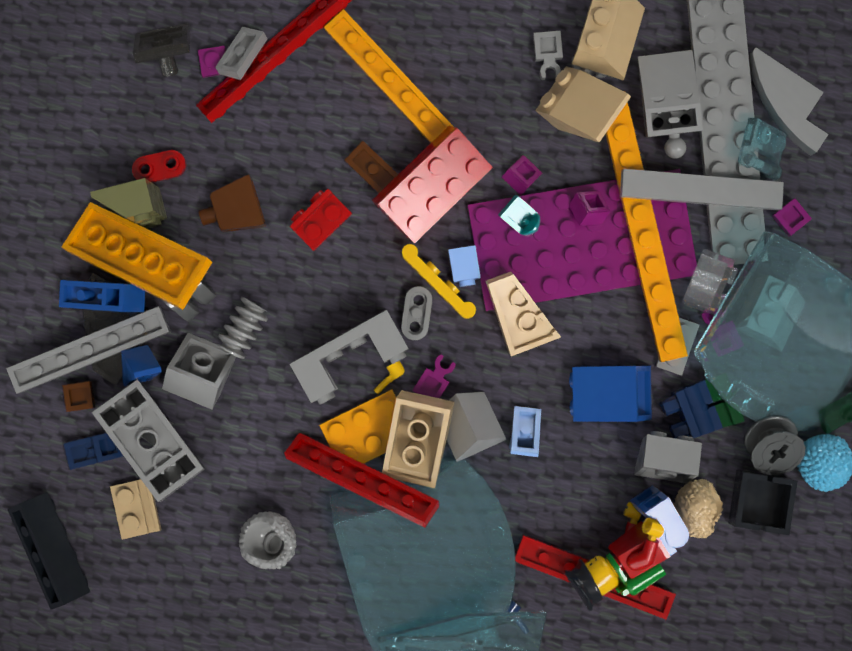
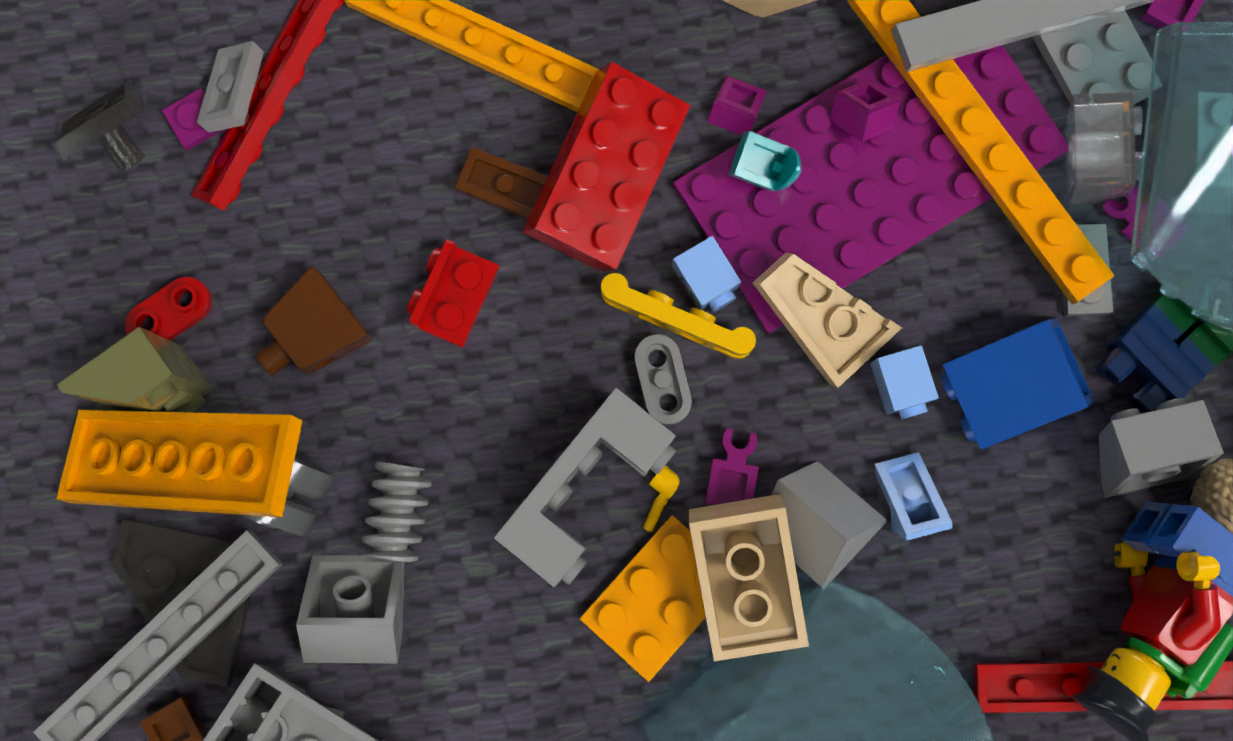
camera: 20 degrees left, 5 degrees down
(101, 296) = (148, 550): blue slope -> none
(139, 364) = (251, 638): blue slope -> none
(362, 480) = (689, 680): red plate -> none
(548, 368) = (904, 382): none -> light blue brick

